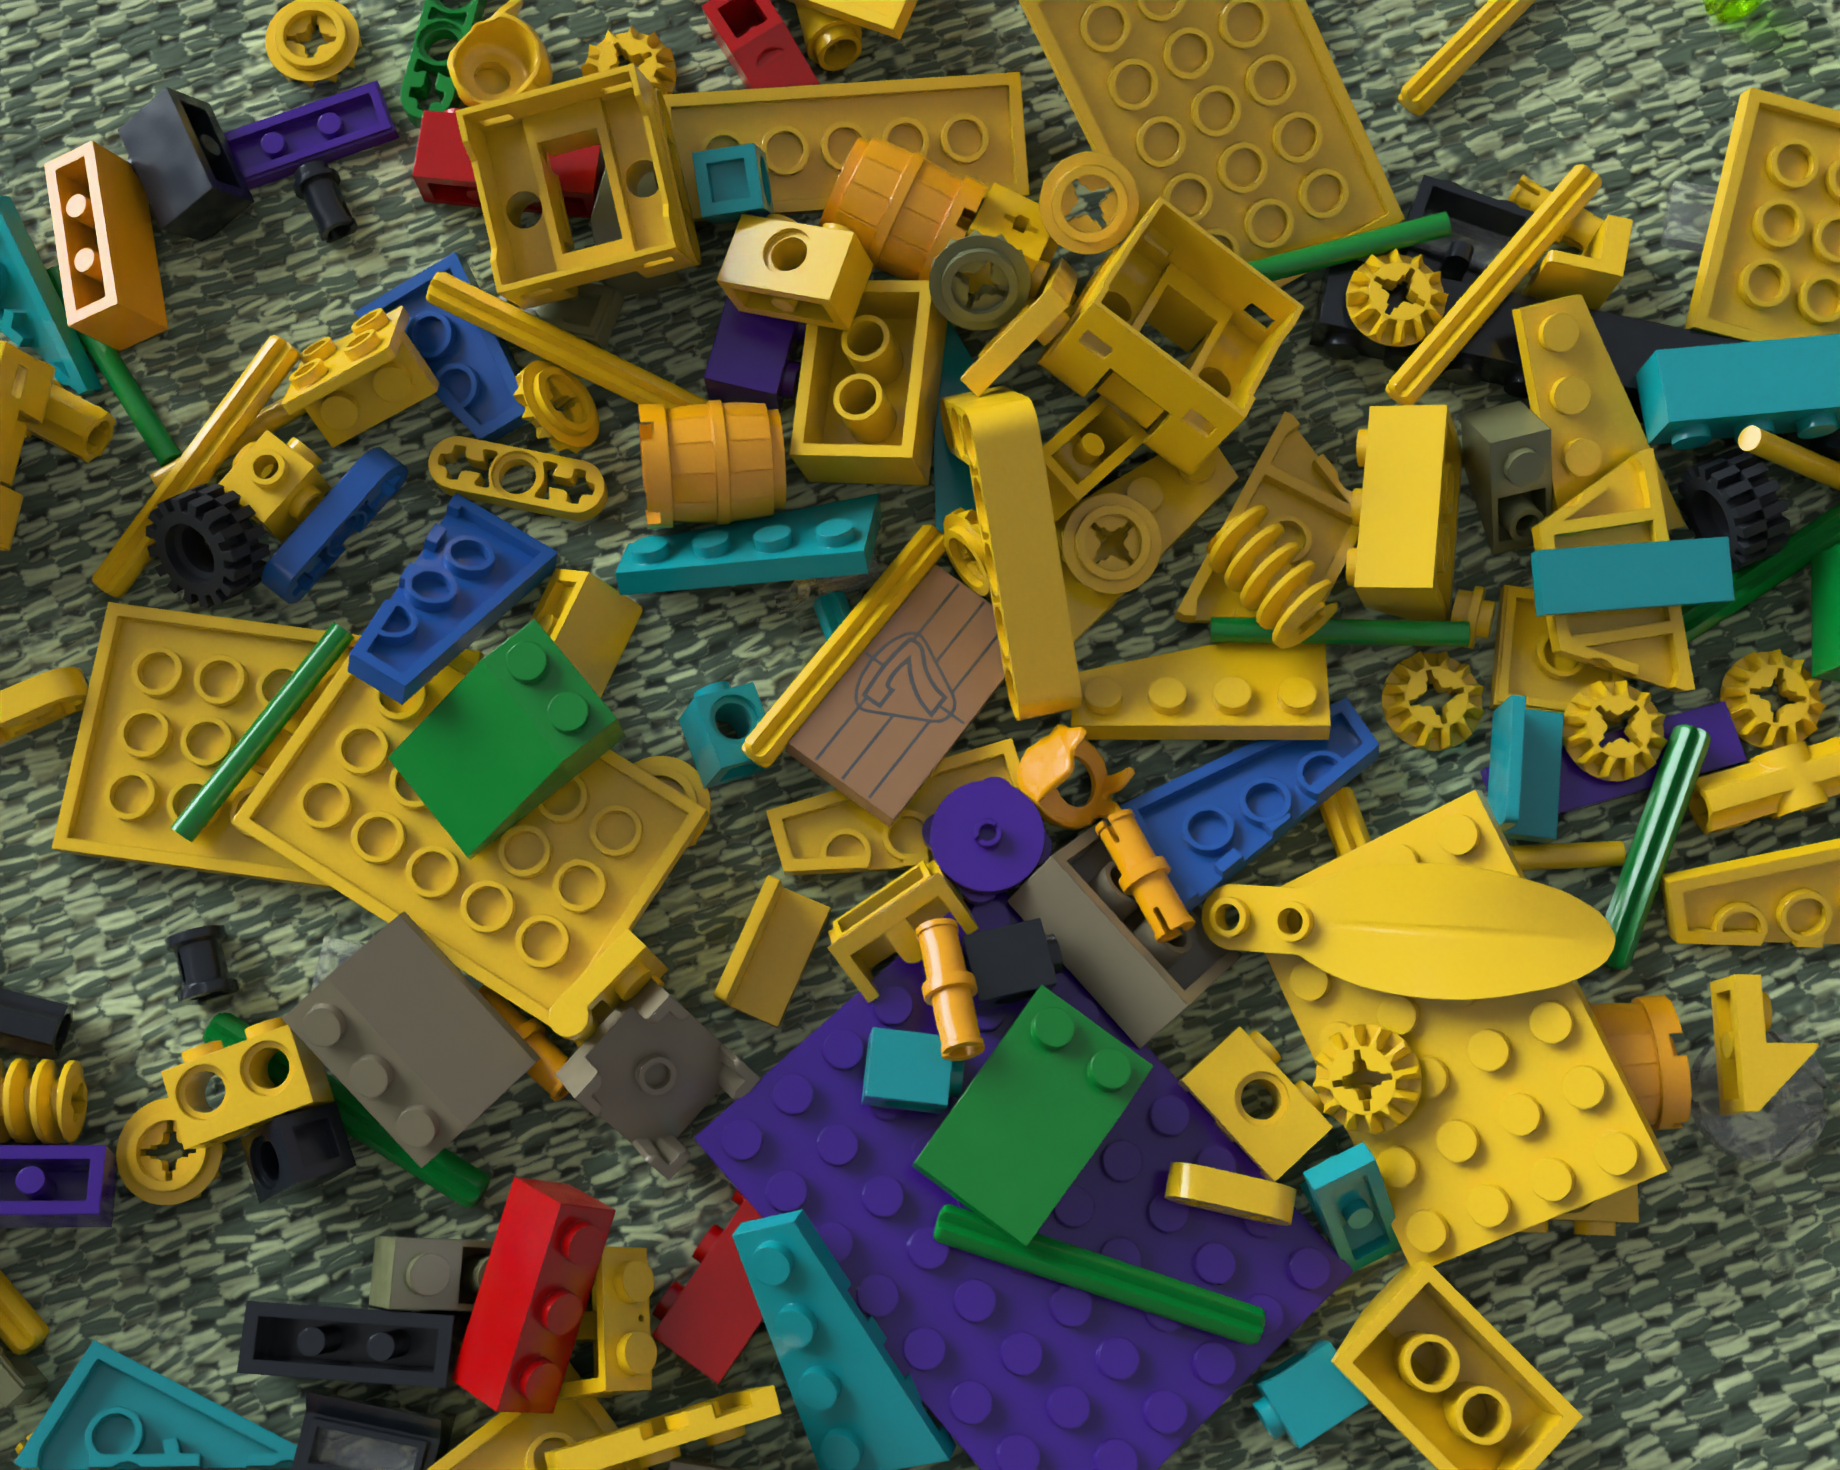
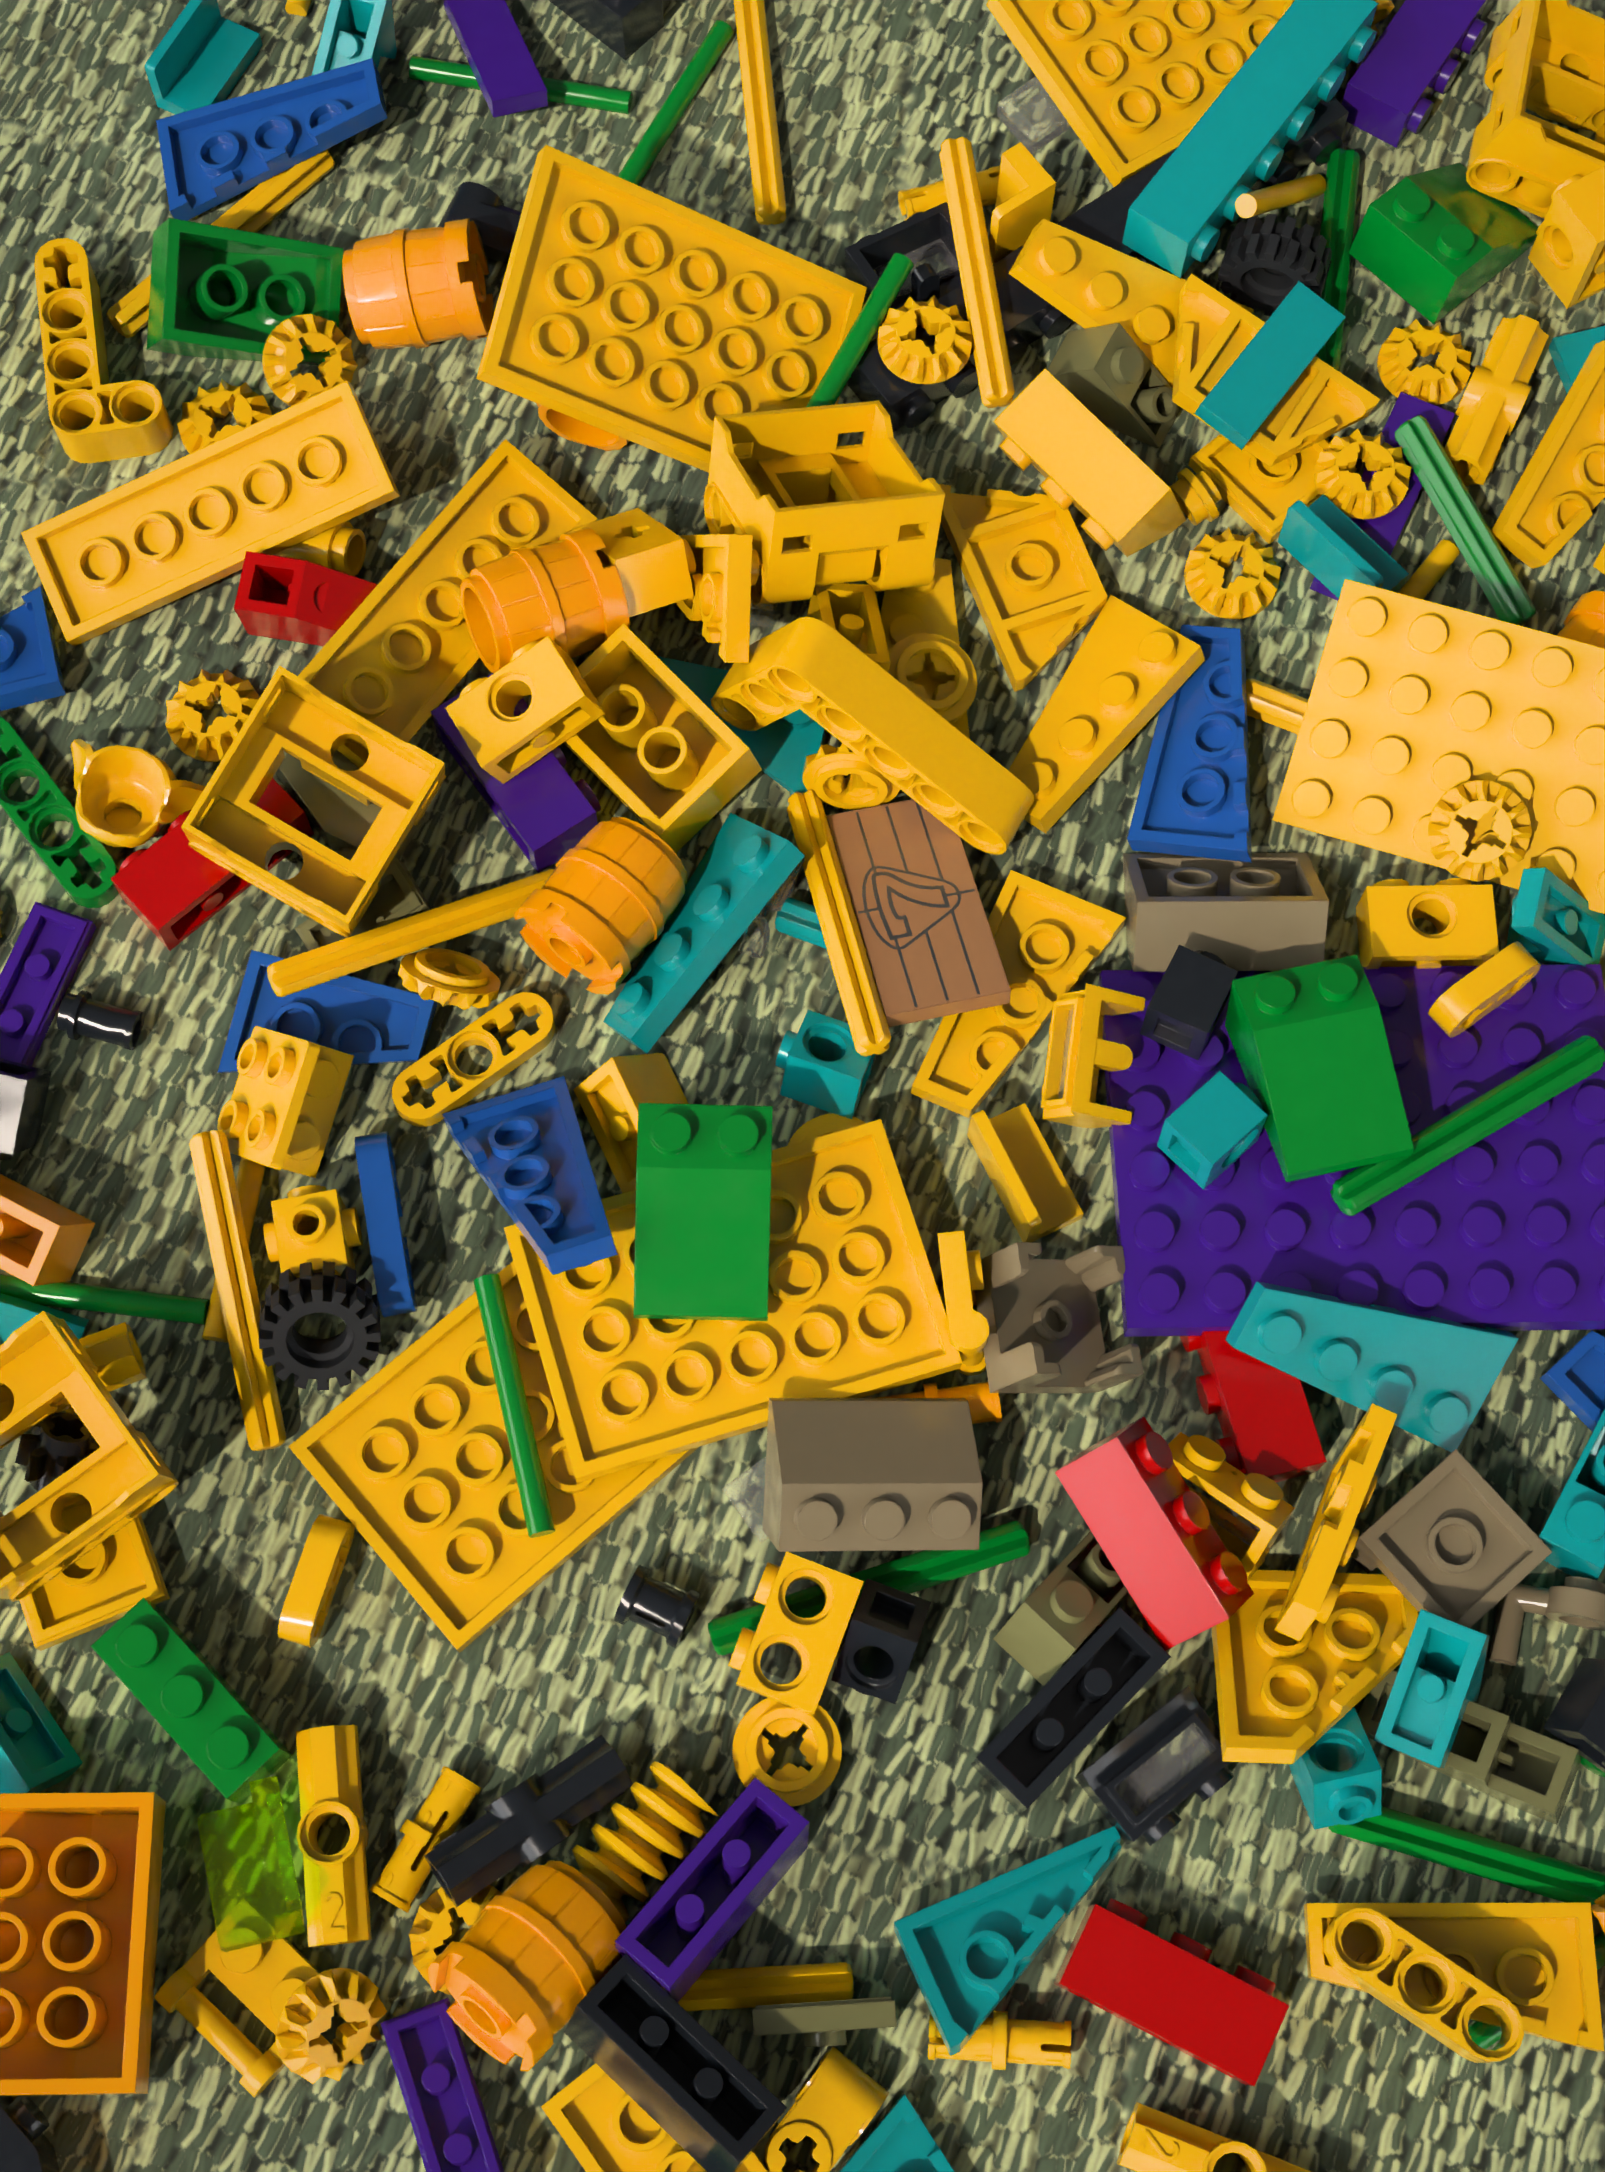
camera: 50 degrees left, 5 degrees down
(732, 183) = (413, 695): teal brick -> none
(949, 989) = (1182, 1044): light orange pin -> none
(987, 838) = (1075, 941): dark purple piece -> none
(991, 304) = (678, 602): olive gear -> none
(1052, 762) = (1061, 855): light orange piece -> none
(1118, 207) = (685, 456): yellow gear -> none
(1144, 876) = (1203, 856): light orange pin -> none
(1269, 579) = (1057, 590): yellow piece -> none
(1351, 632) = (1131, 587): green bar -> none
(1421, 929) = (1408, 701): yellow plant -> none

